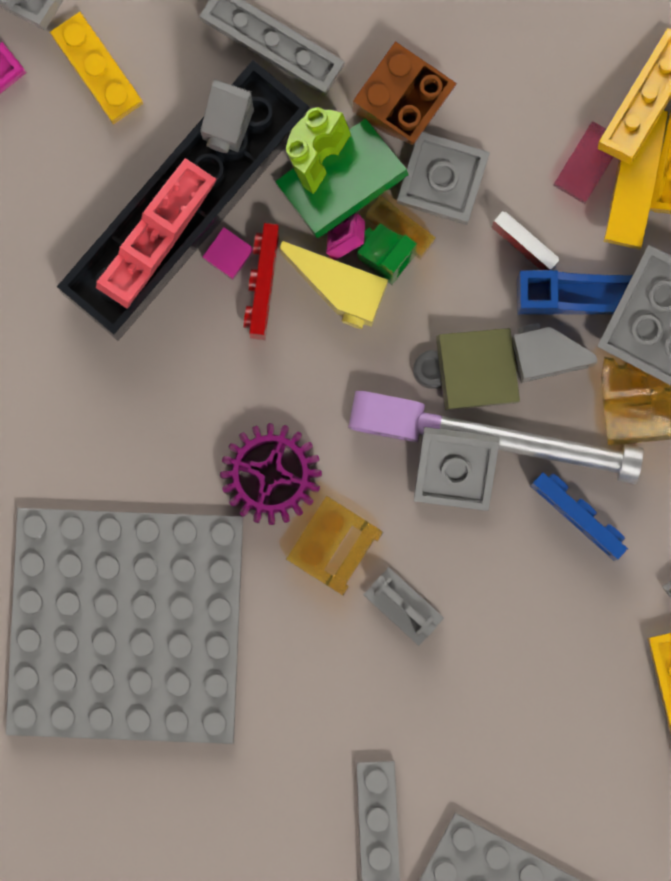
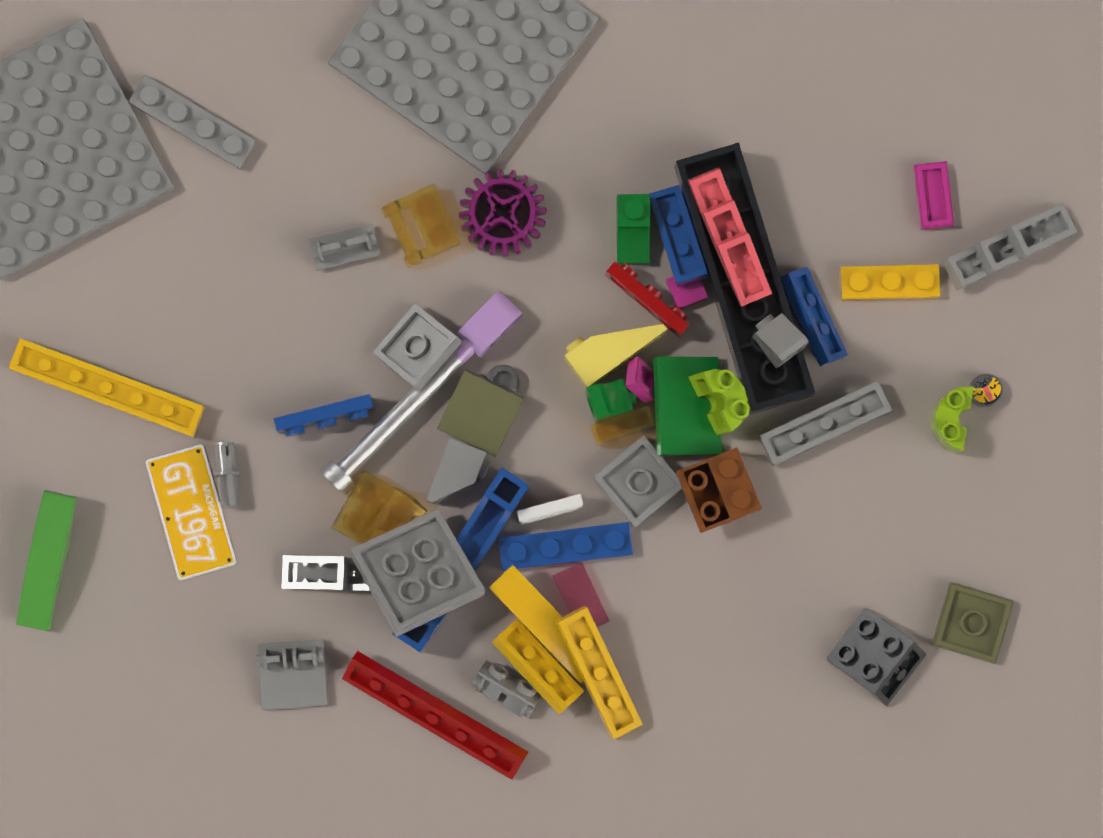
camera: 120 degrees right, 0 degrees up
(177, 115) = (813, 316): none -> blue plate
(183, 291) = (678, 235): none -> blue plate
(205, 339) = (633, 229): none -> green arch
(549, 208) = (565, 546): none -> blue plate

